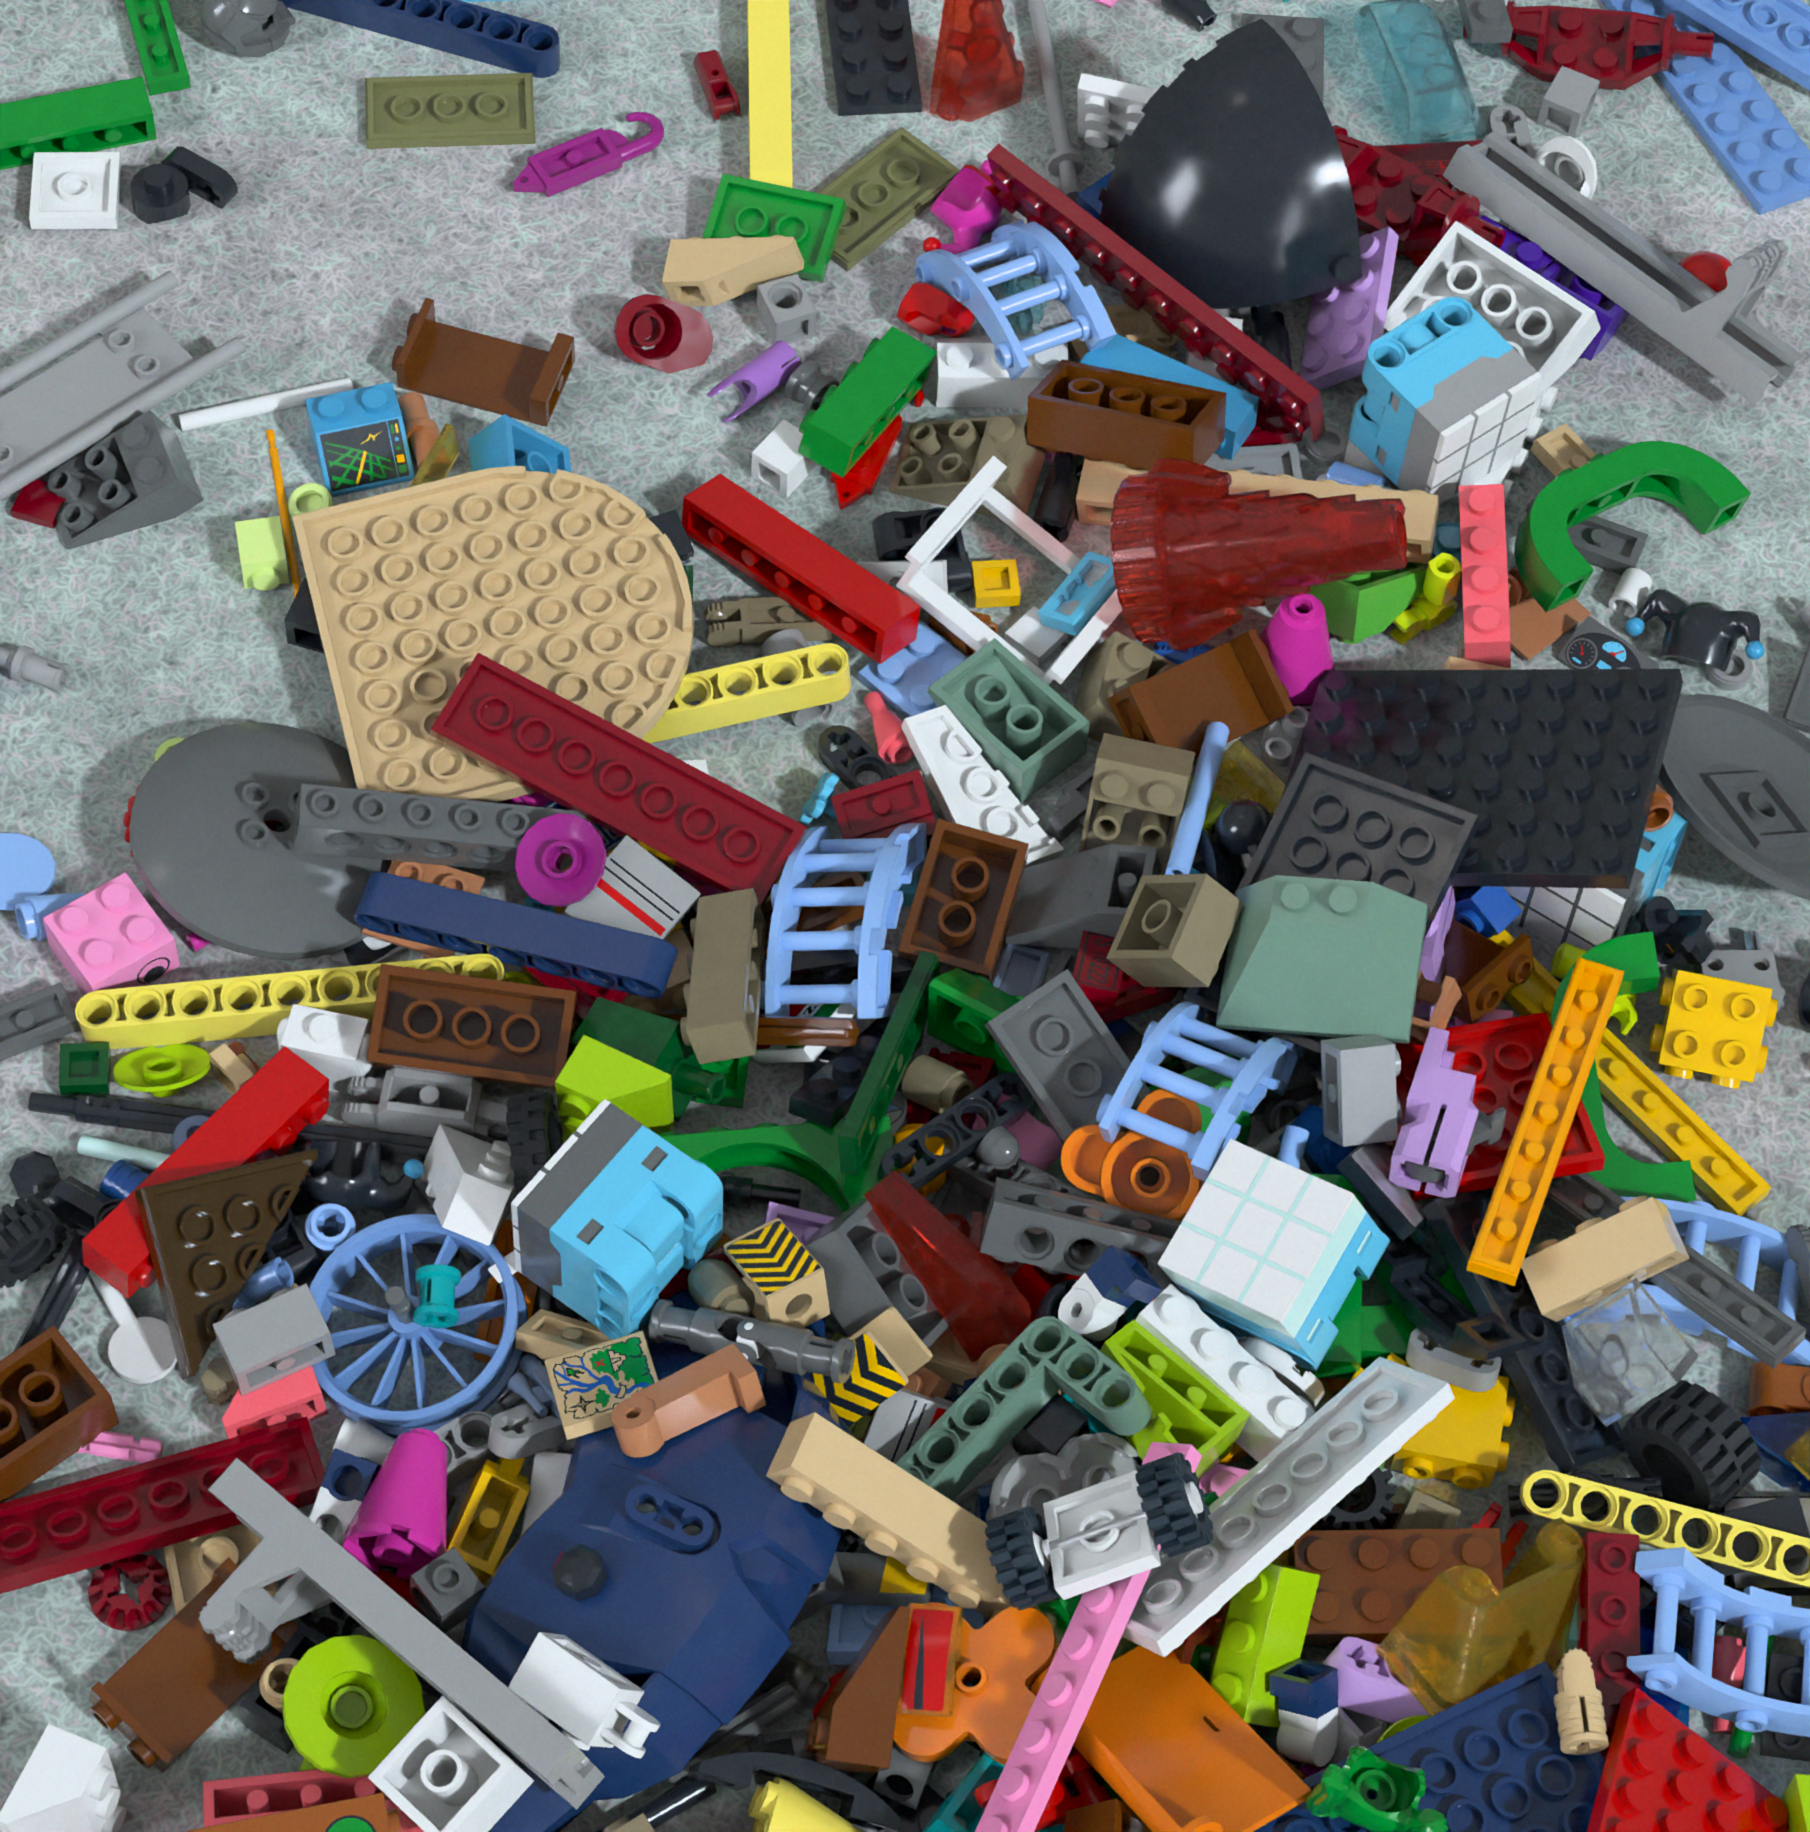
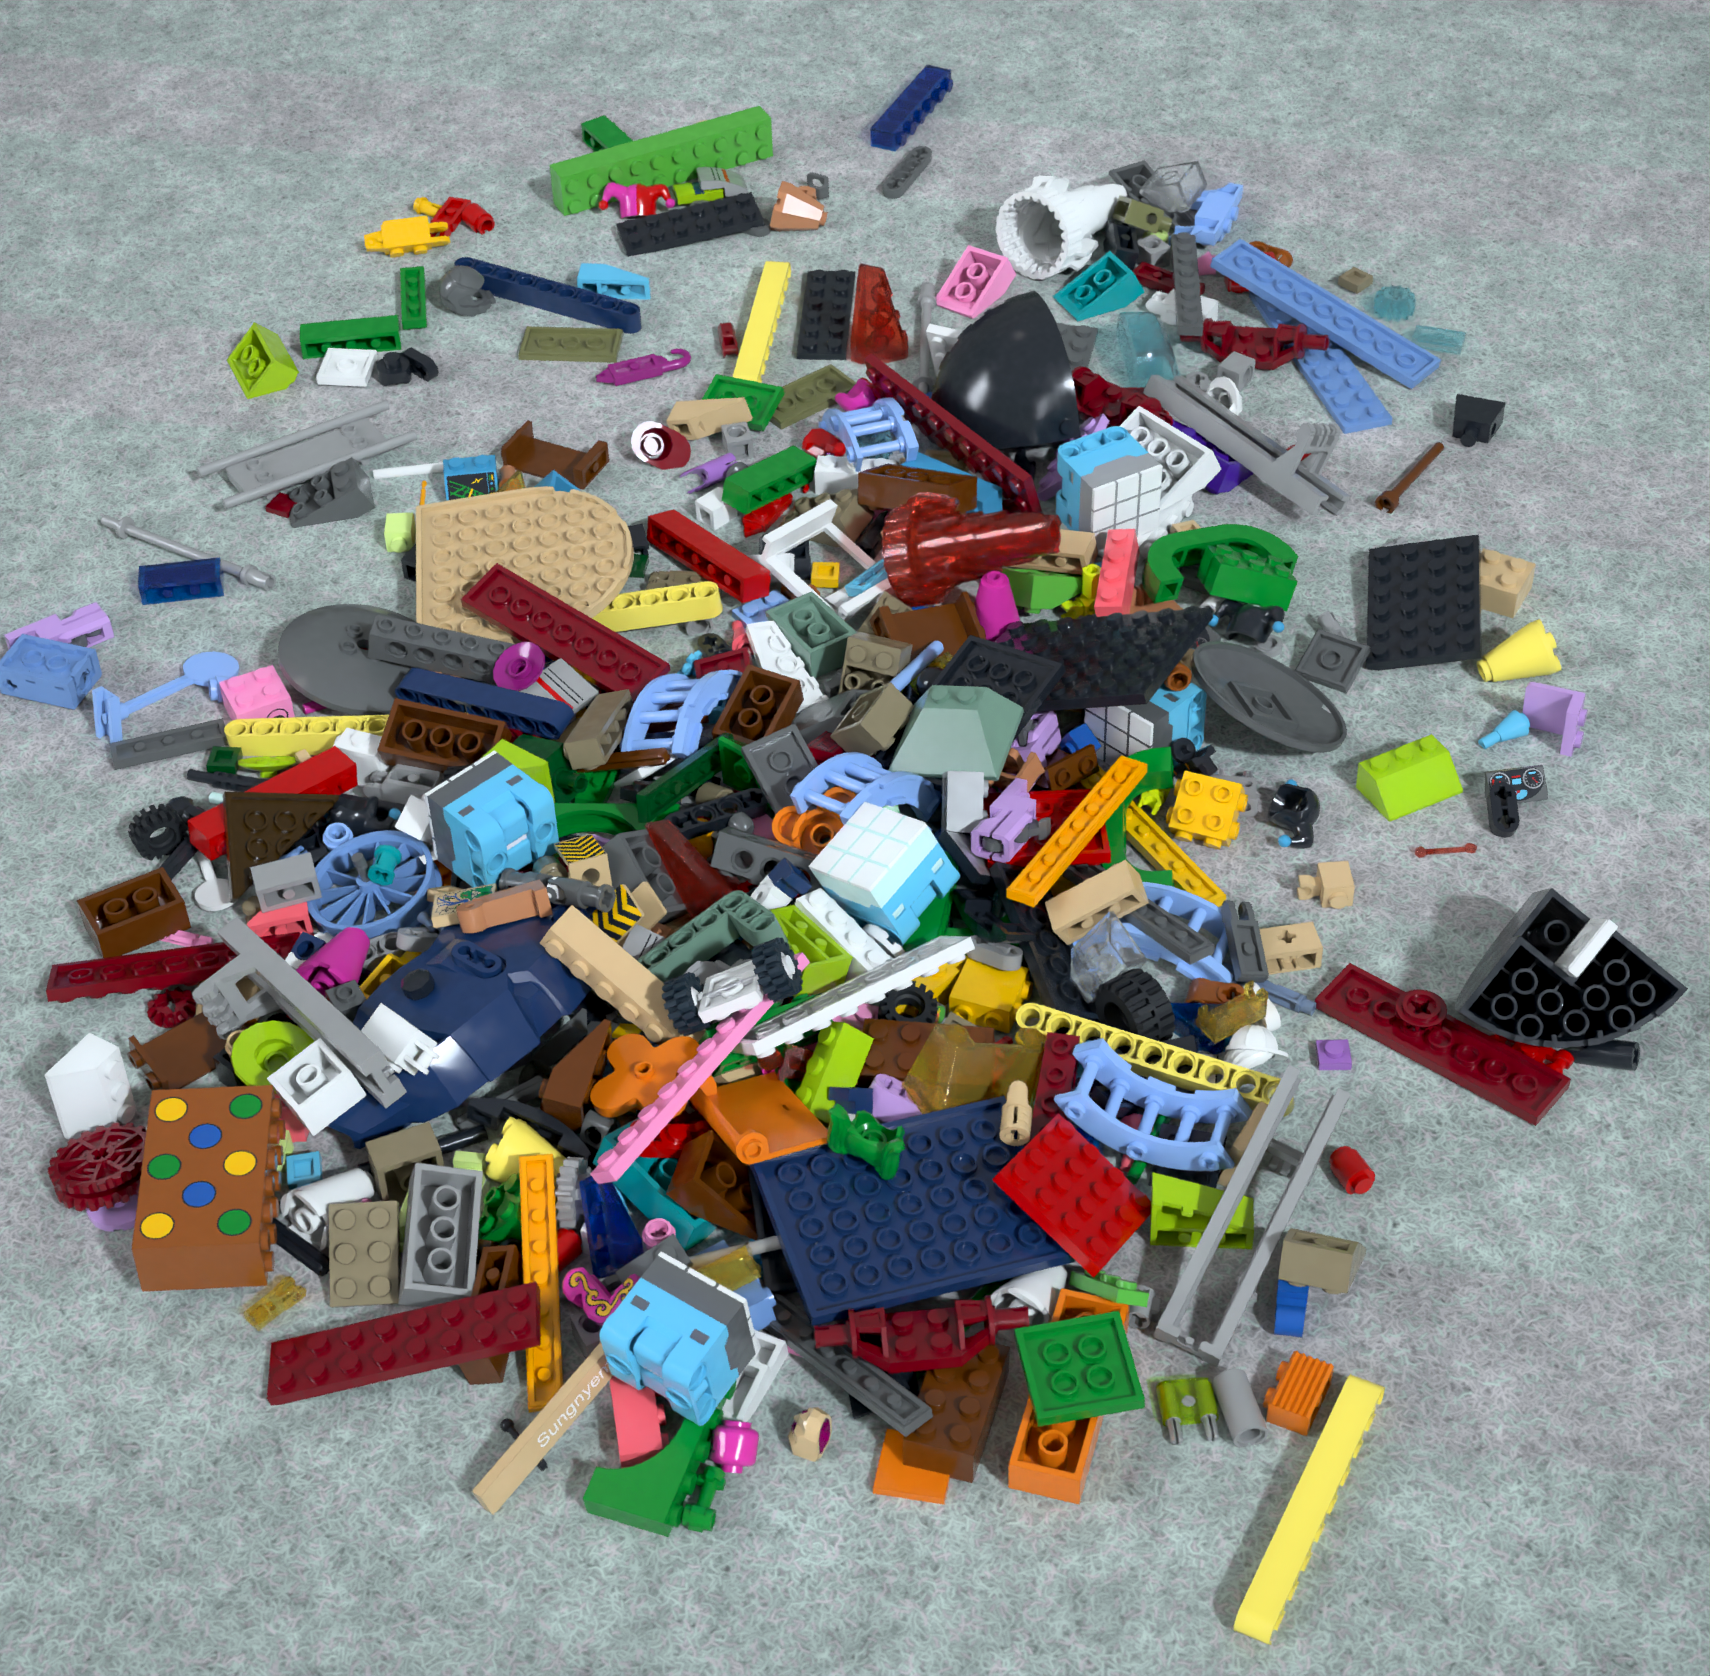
camera: 15 degrees right, 15 degrees down
(930, 1660) = (618, 1057): slope -> none
(1684, 552) = (1246, 577): none -> green piece

